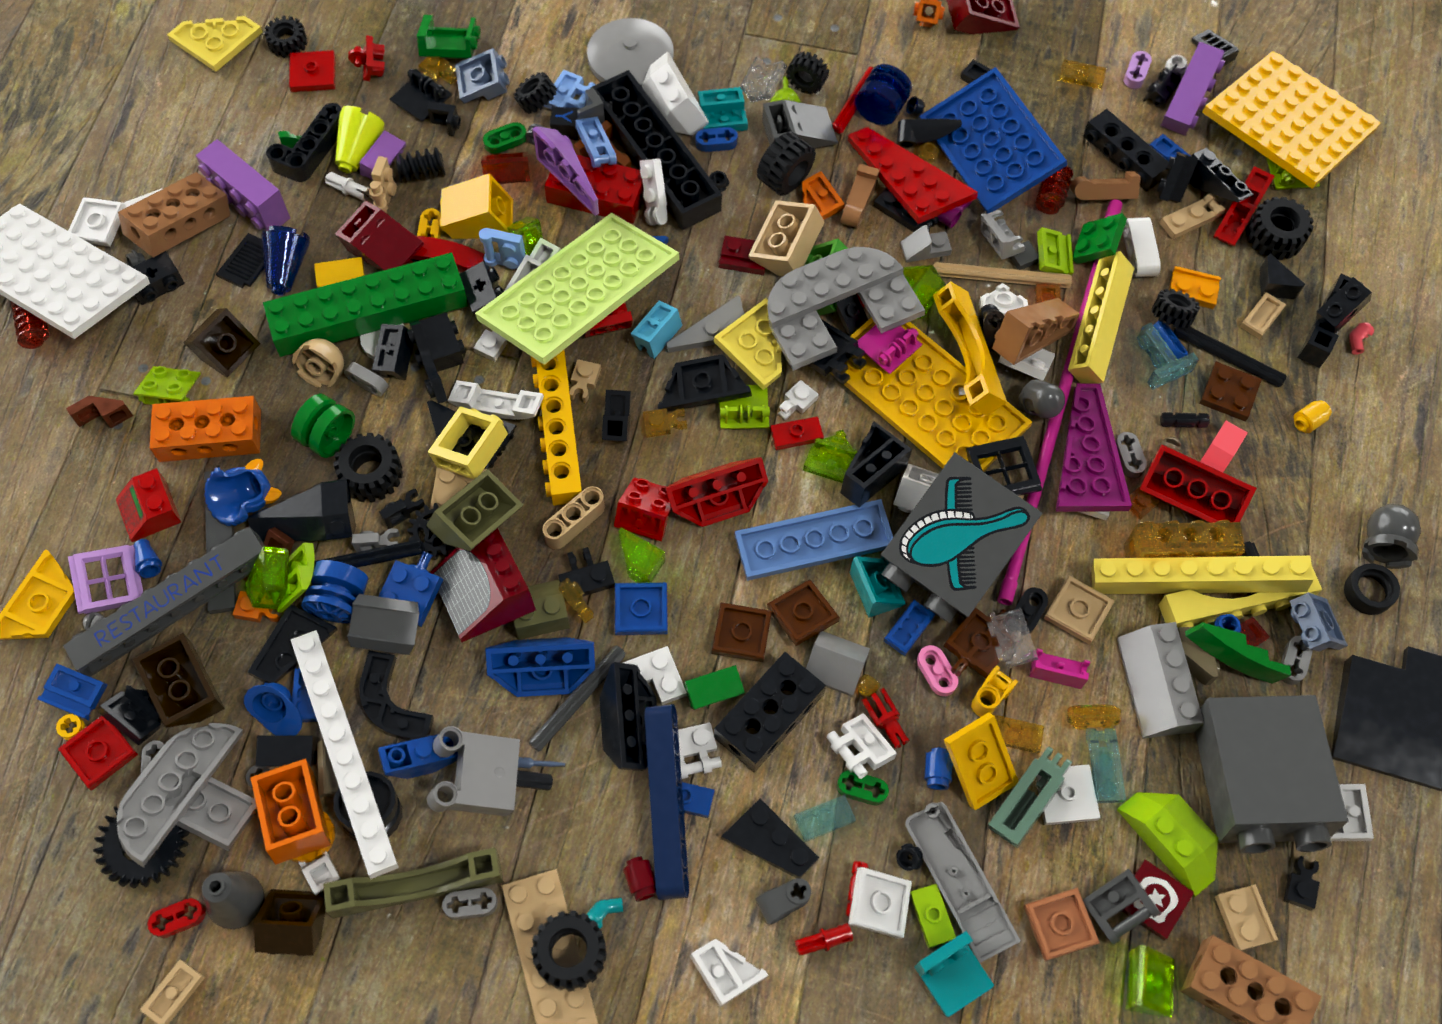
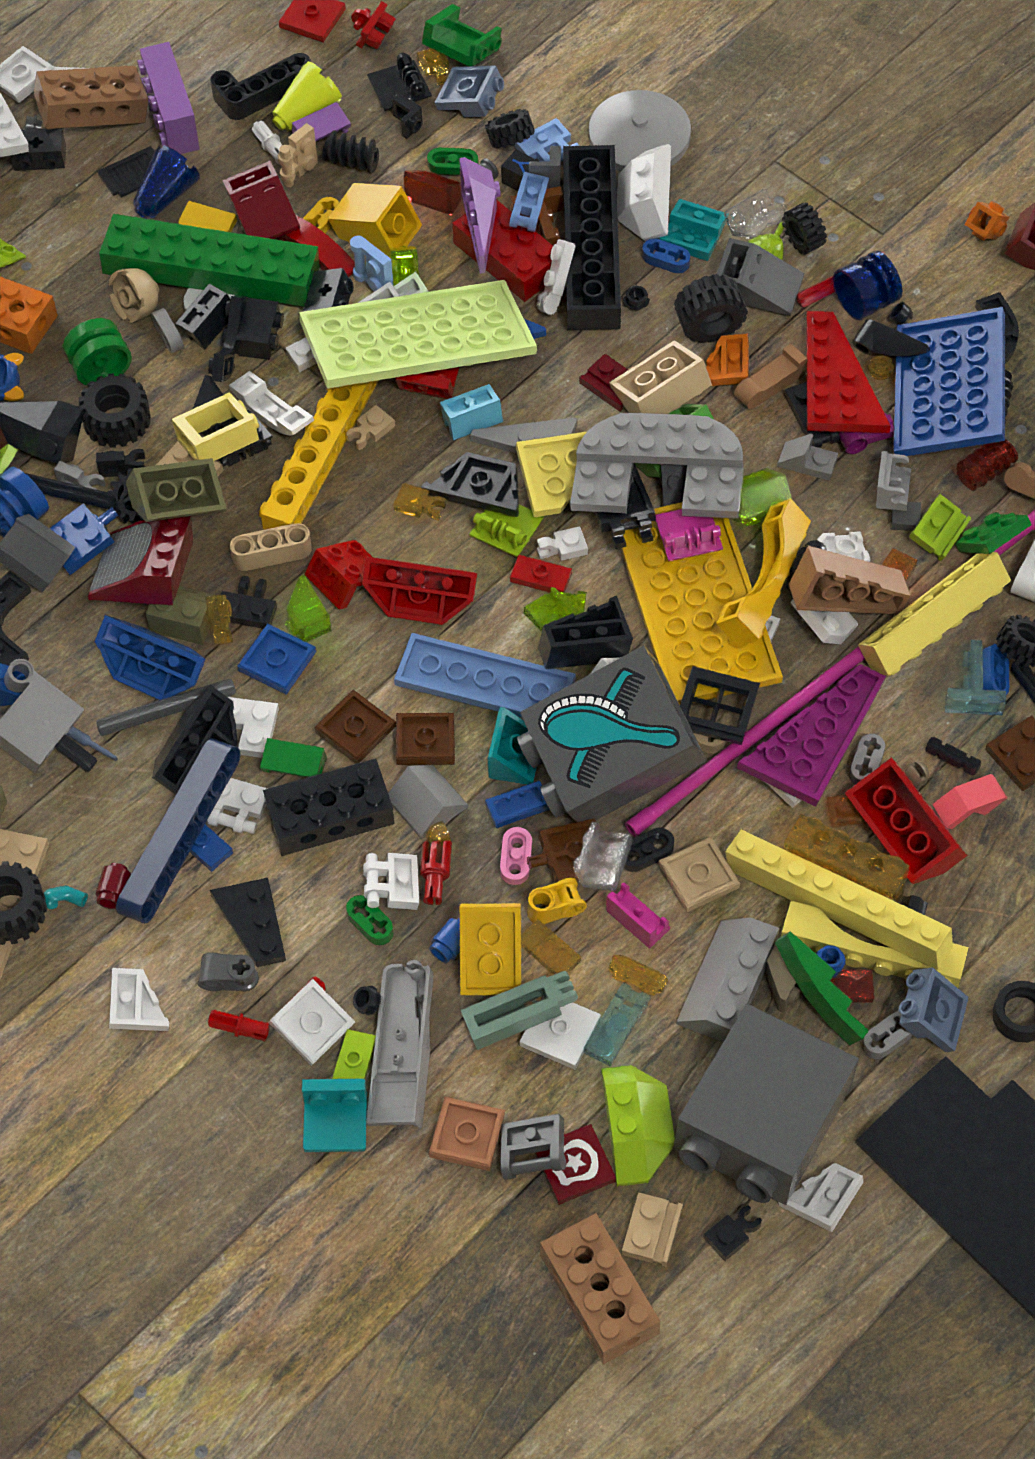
camera: 35 degrees right, 5 degrees down
(222, 342) = (60, 236): dark brown slope -> none
(288, 139) = (241, 71): green tile -> none
(617, 415) = (373, 477): black brick -> none
(824, 818) = (315, 927): clear light blue plate -> none
(1002, 274) = (866, 524): tan axle -> none
(1046, 398) = (808, 658): dark grey helmet -> none
(1150, 982) = (513, 1226): clear neon green slope -> none

